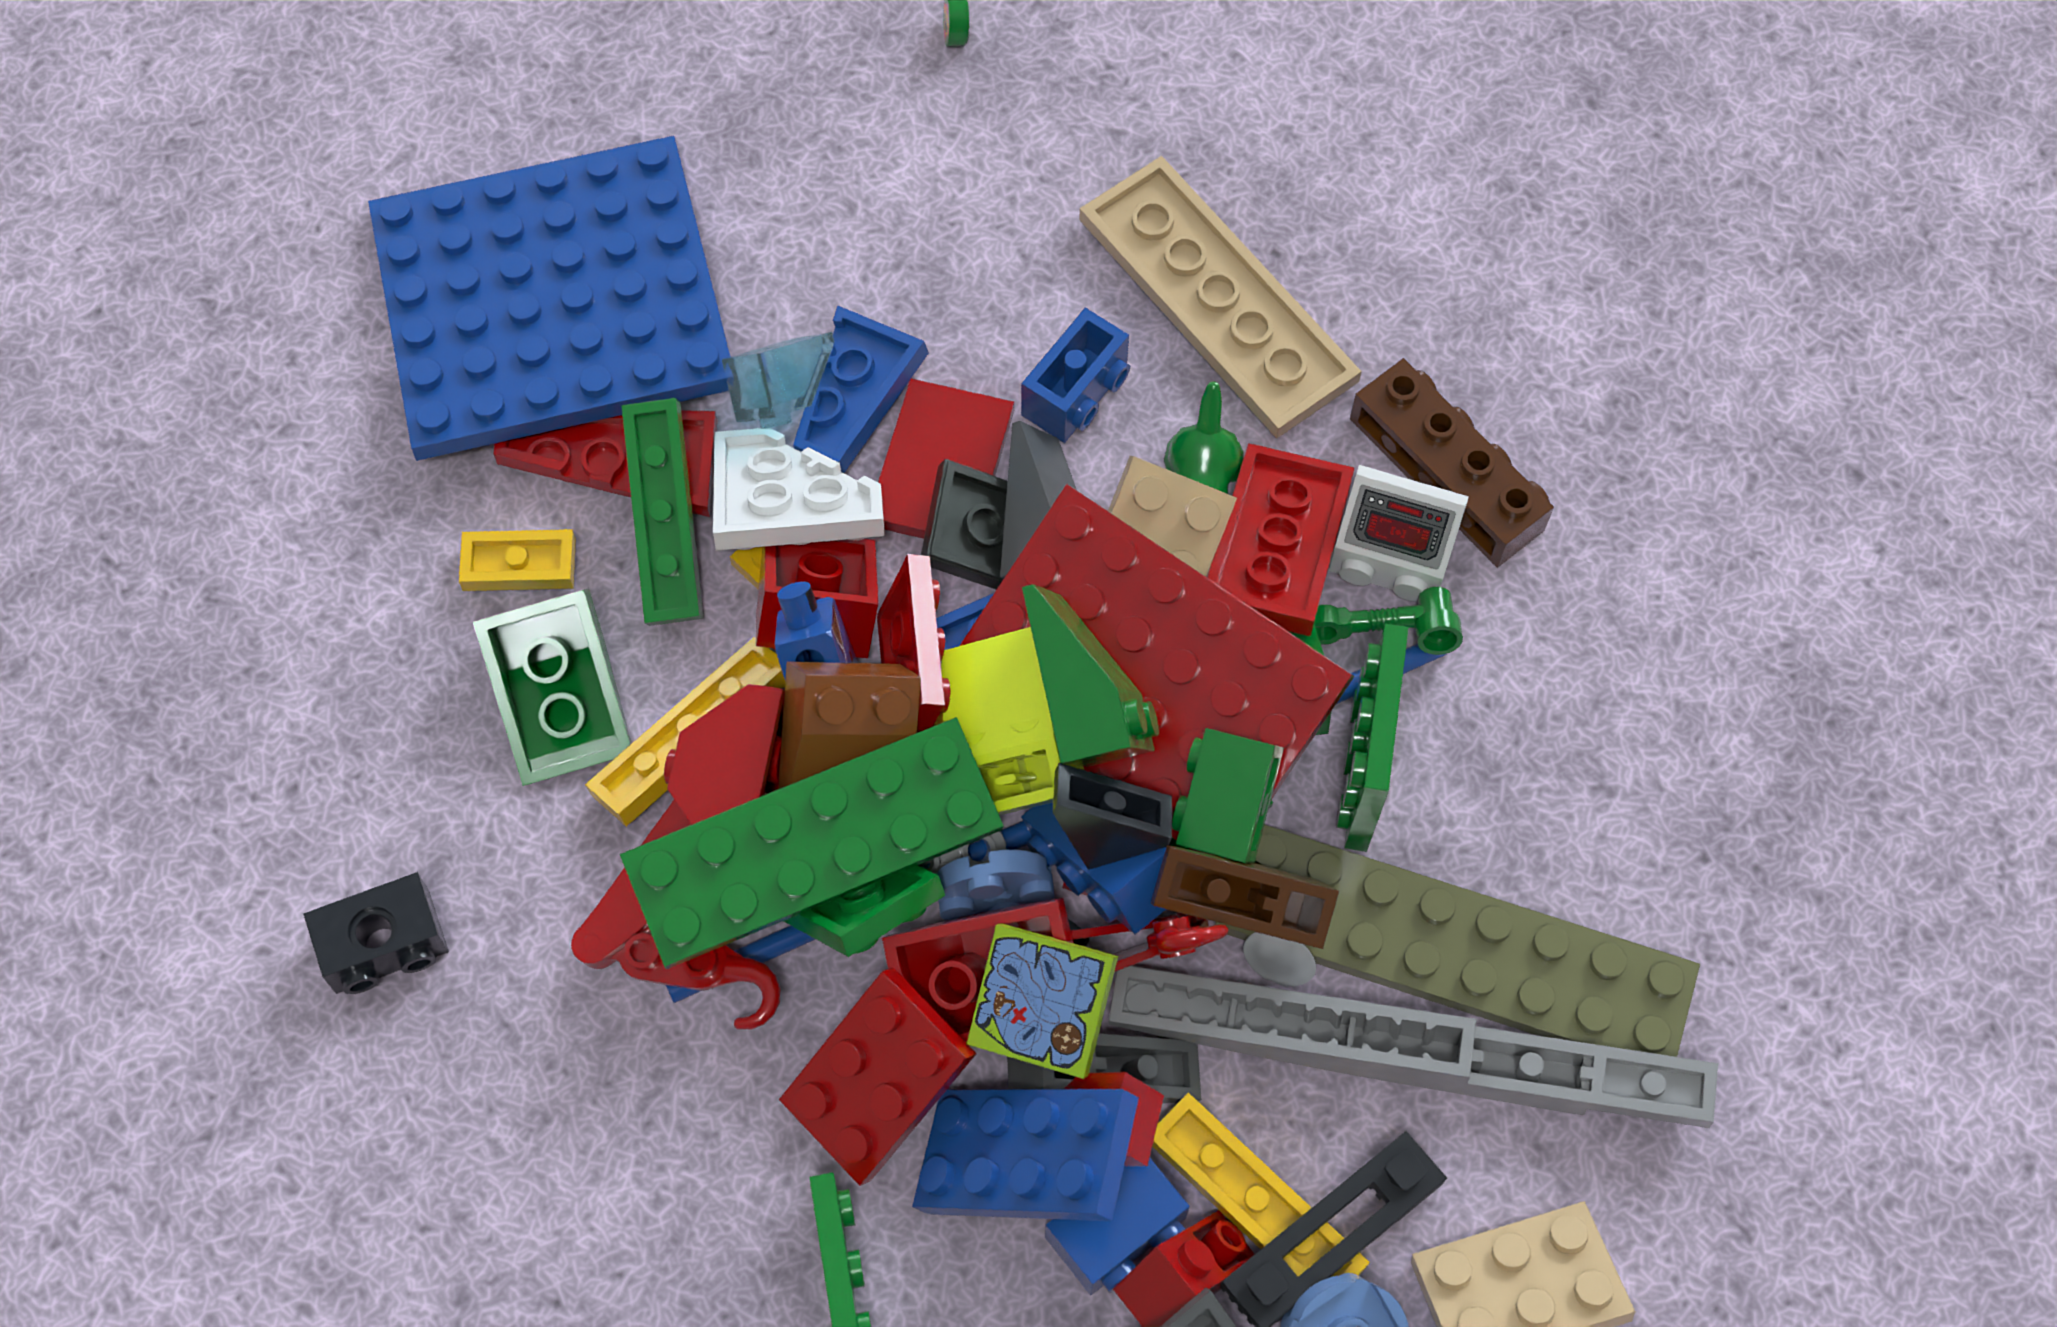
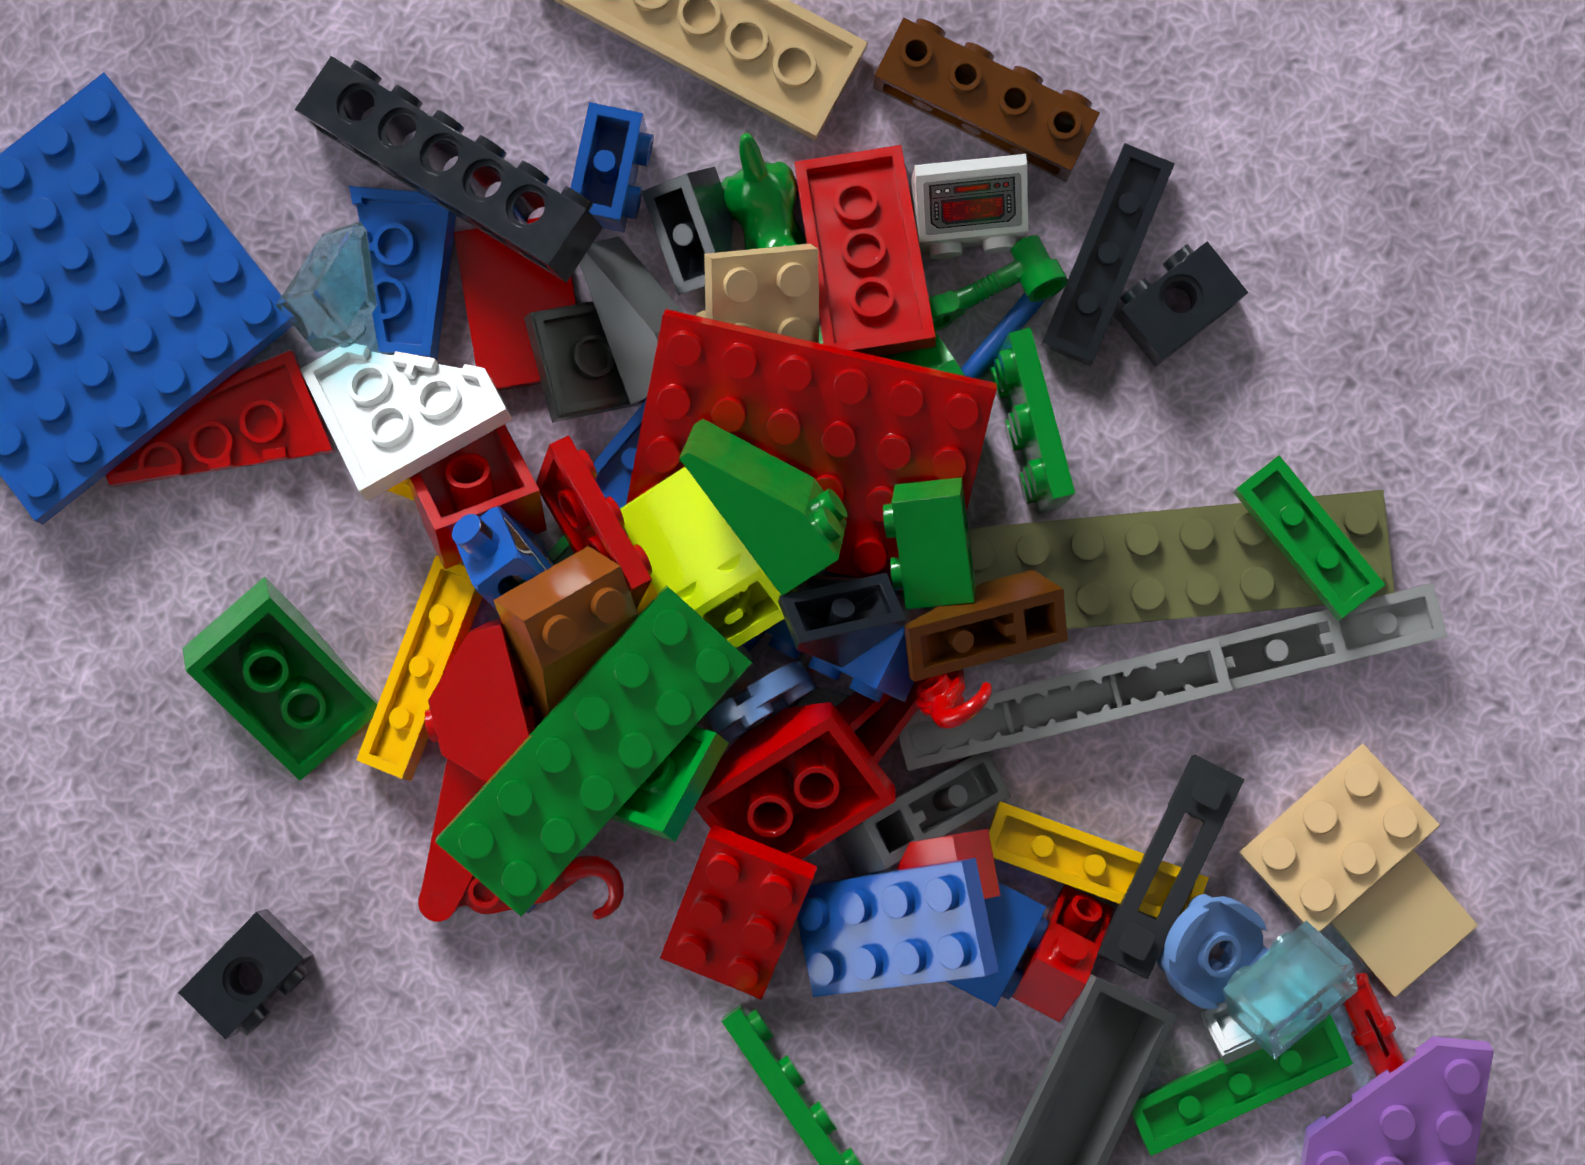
camera: 20 degrees left, 20 degrees up
(517, 560) = (184, 575): yellow plate -> none
(662, 512) = (295, 476): green plate -> none
(937, 314) = (552, 242): none -> black brick
(1042, 1000) = (854, 803): tile -> none
(1124, 429) = (690, 222): none -> black slope
(1509, 640) = (1107, 254): none -> black plate
(1540, 730) = (1203, 278): none -> black brick
(1606, 967) = (1308, 538): none -> green plate

